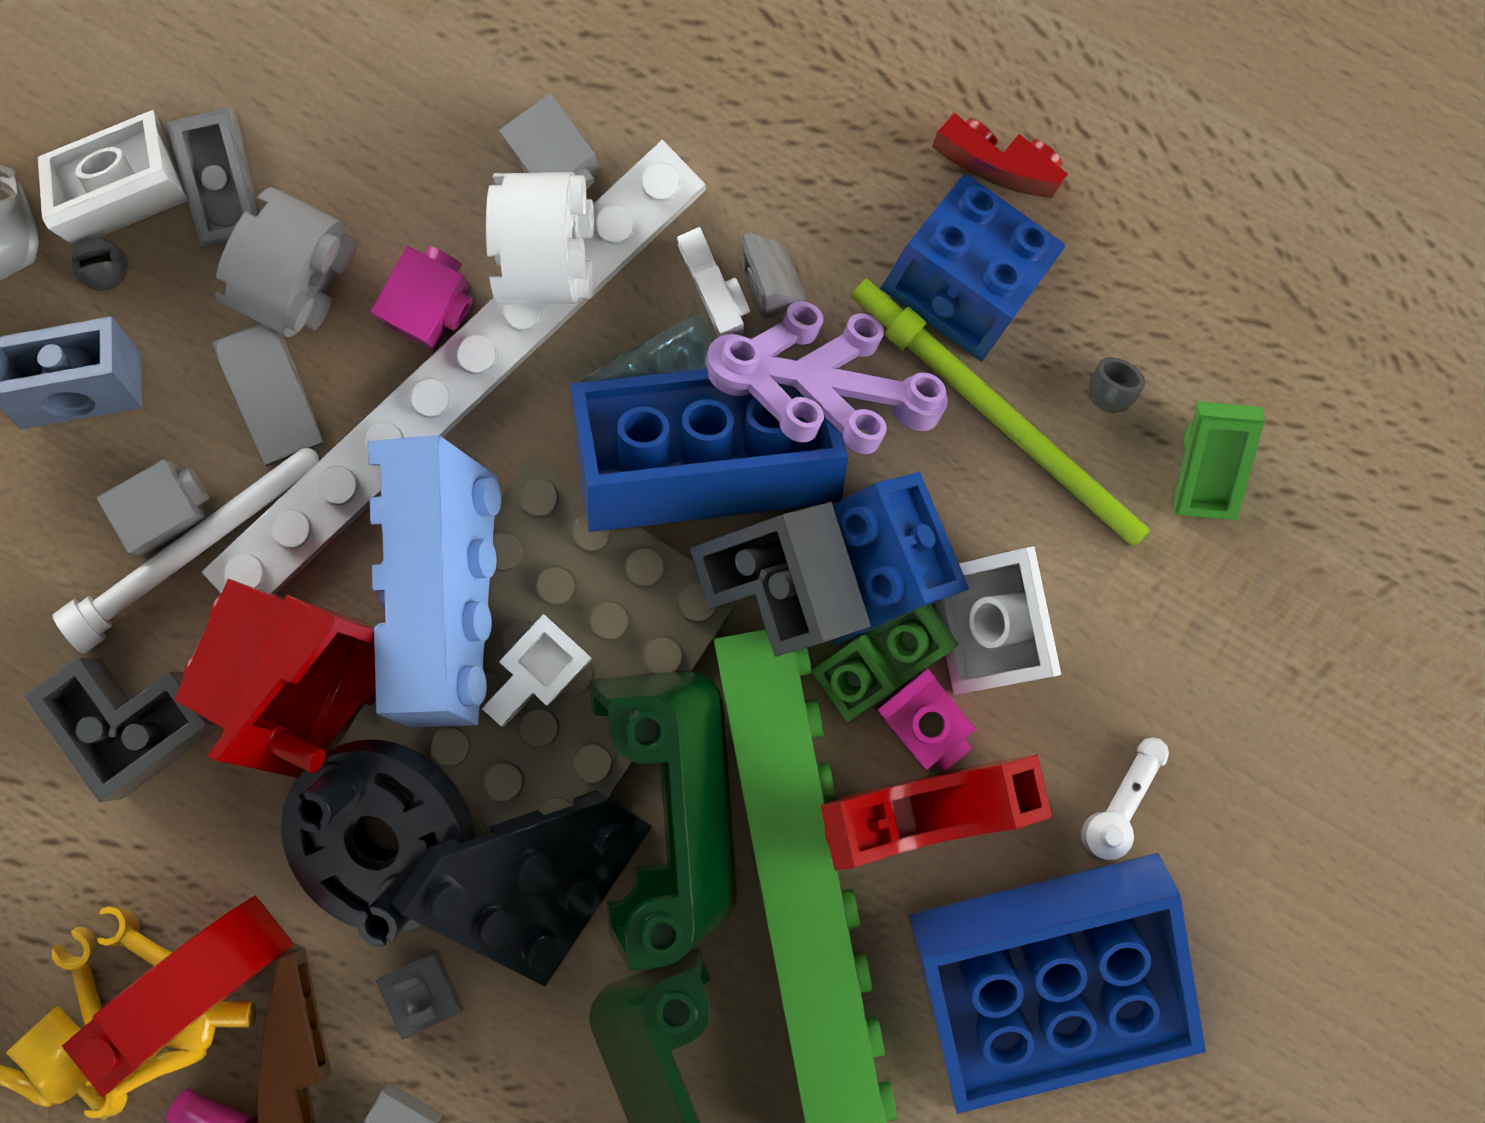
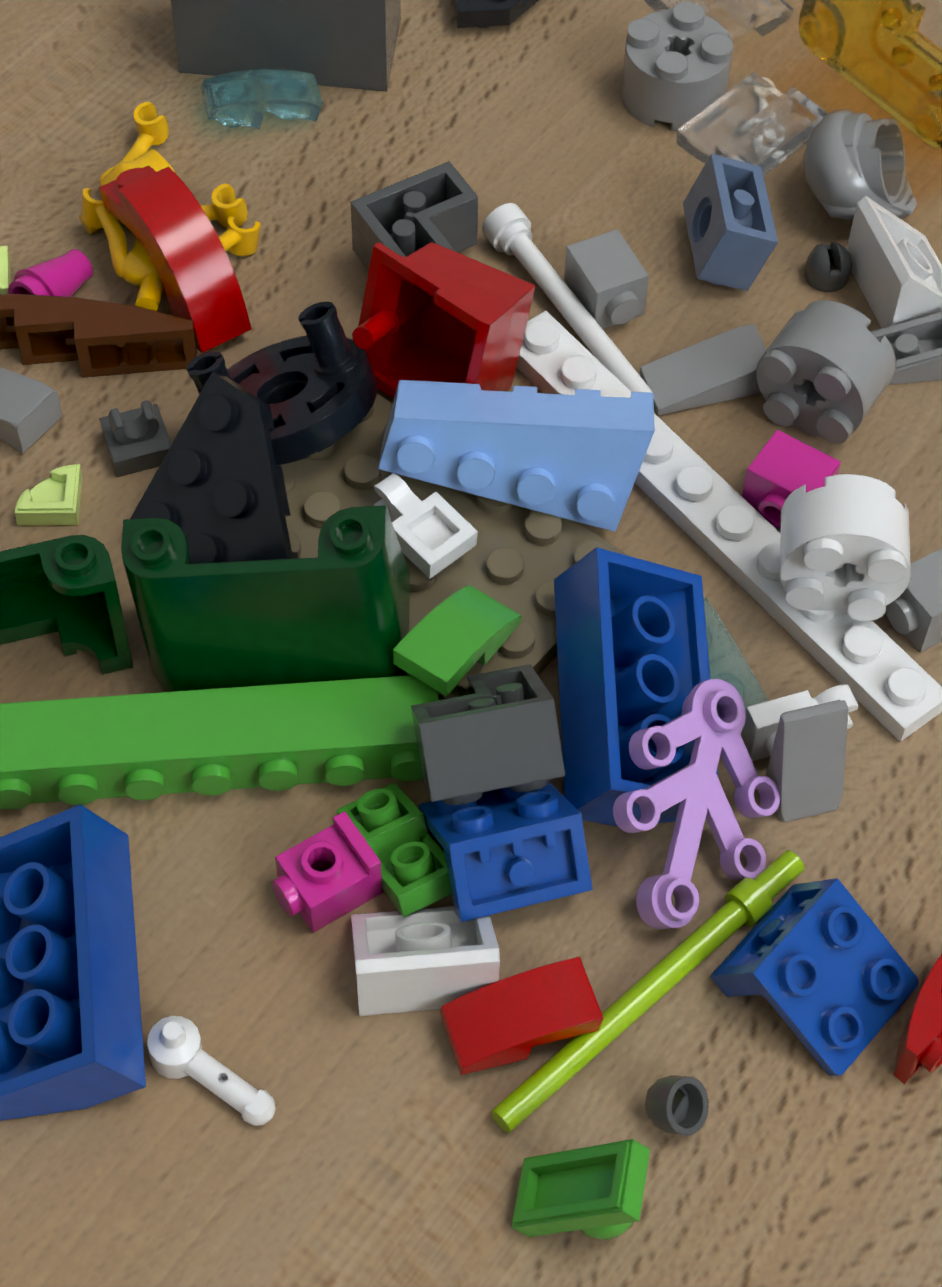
camera: 90 degrees right, 30 degrees down
(505, 1069) = (53, 500): none -> yellowish green tile
(675, 621) = (454, 637): none -> bright green slope
(935, 810) = (230, 851): red arch -> none
(1053, 523) = (520, 1012): none -> red slope

